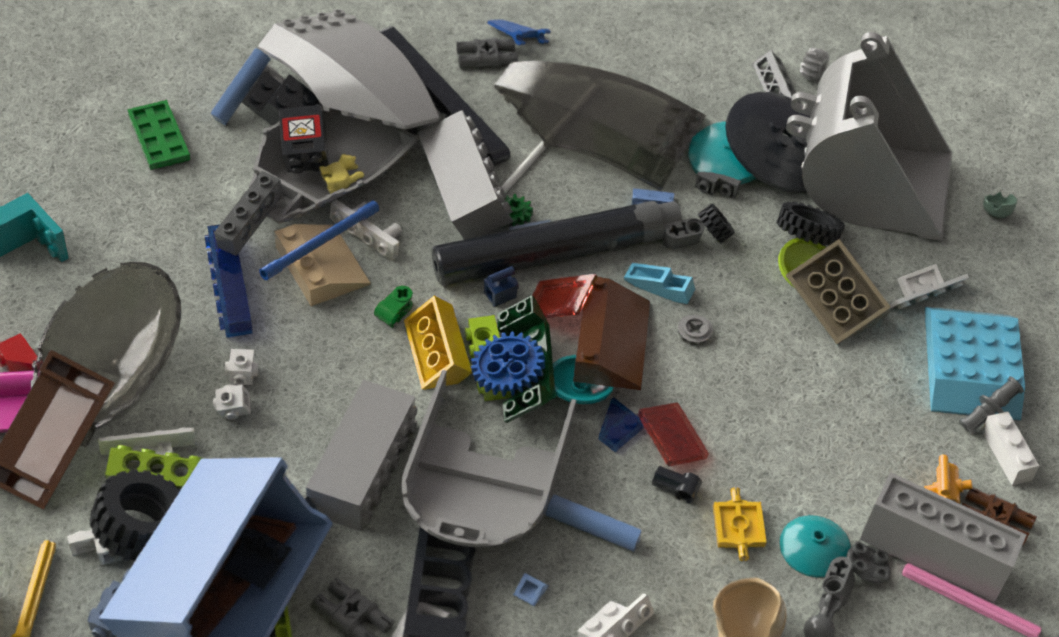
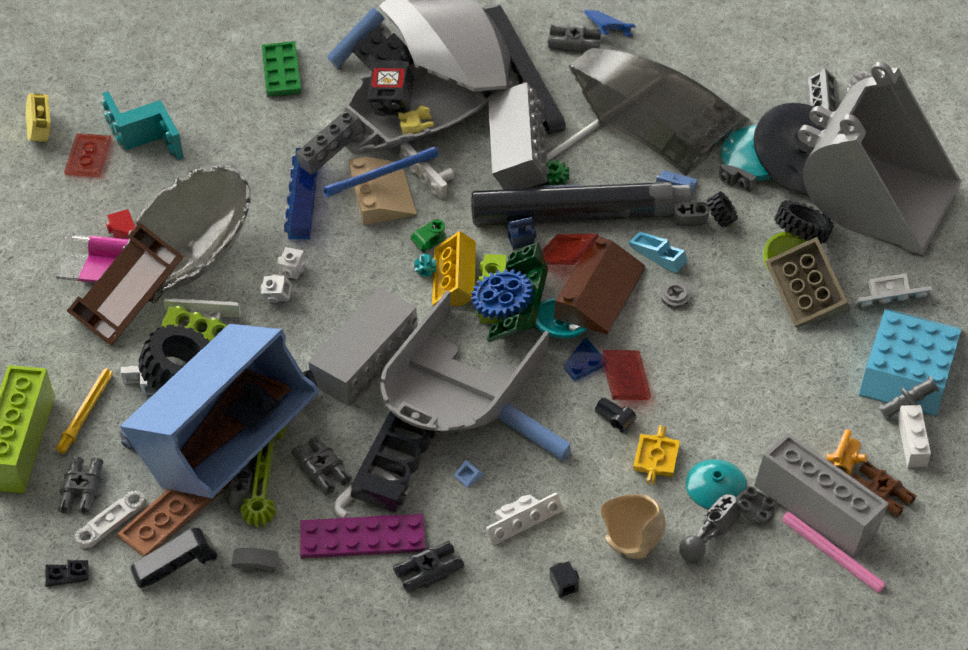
camera: 20 degrees right, 0 degrees up
(402, 343) = (425, 265): none -> teal gear

